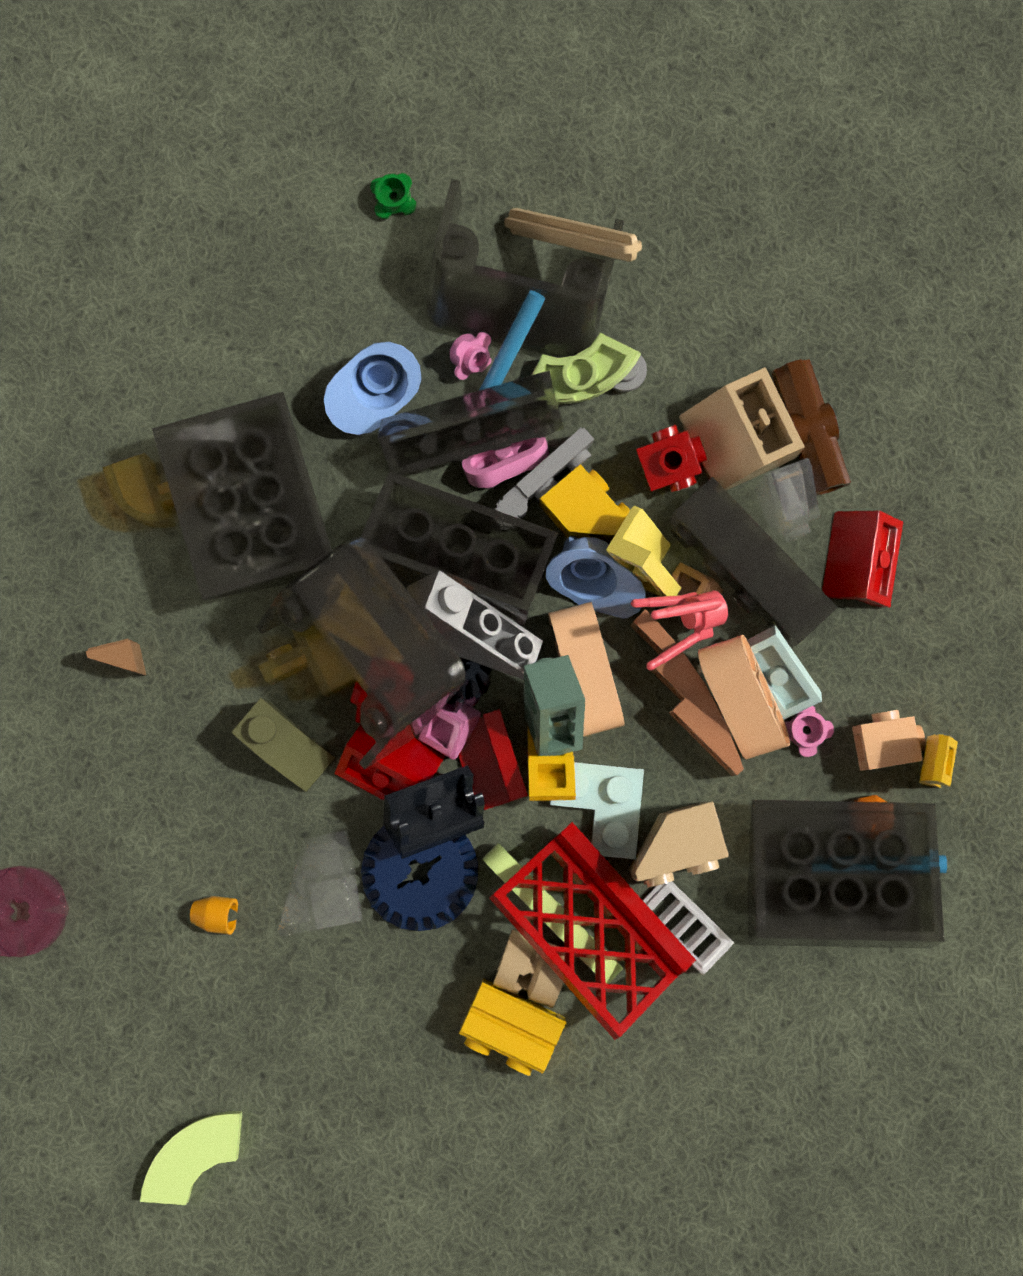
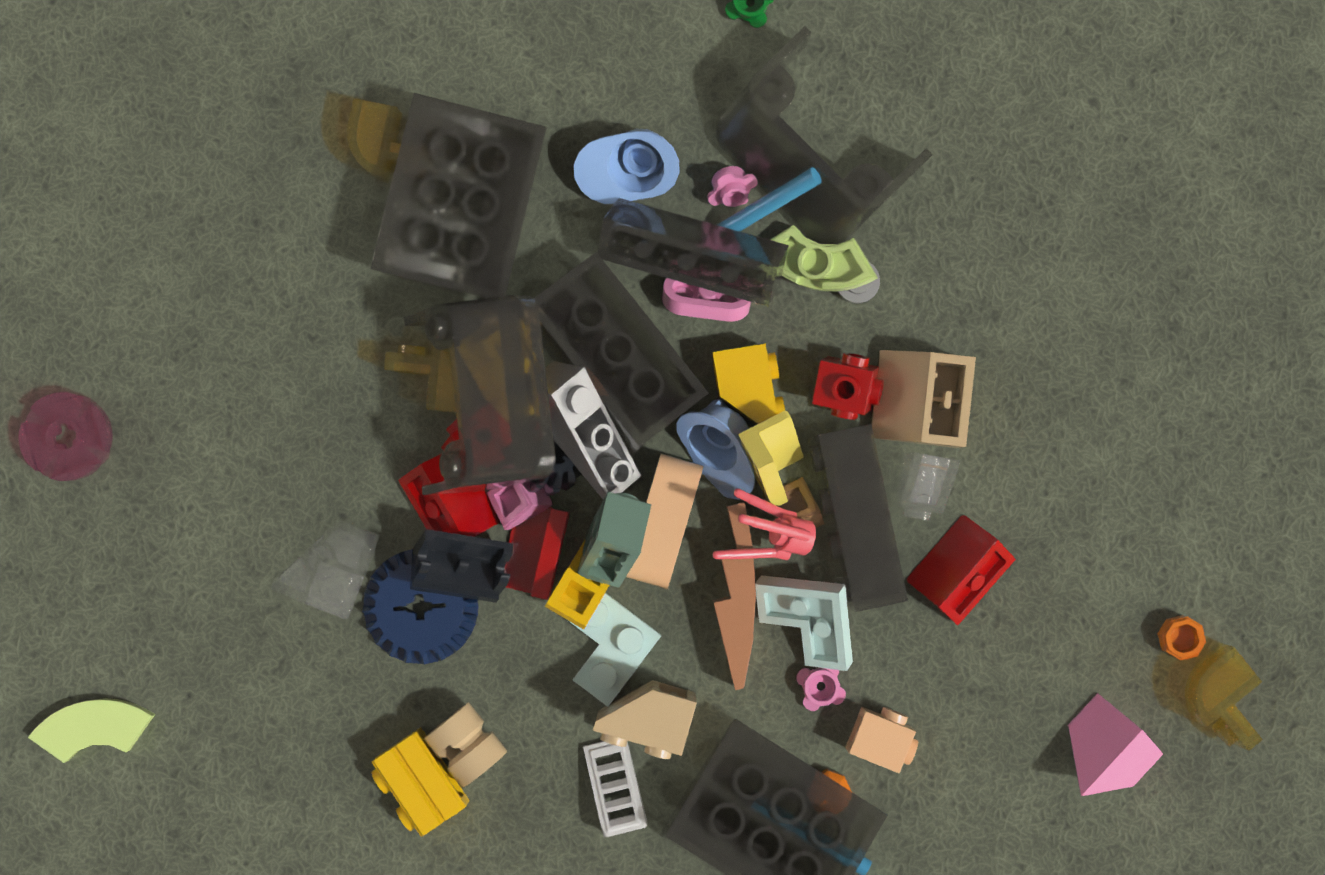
camera: 30 degrees right, 5 degrees up
(121, 654) = (276, 271): medium nougat slope -> none
(212, 914) = (225, 537): light orange hose -> none
(283, 744) = (368, 429): olive slope -> none
(505, 867) = (509, 710): yellowish green beam -> none
(542, 477) = (725, 335): light grey hinge -> none
(574, 234) = (881, 138): tan axle -> none
(624, 912) = (570, 745): red fence -> none
(744, 697) = (781, 628): light nougat beam -> none
(814, 423) = (988, 429): reddish brown piece -> none
(938, 761) = (911, 782): yellow slope -> none

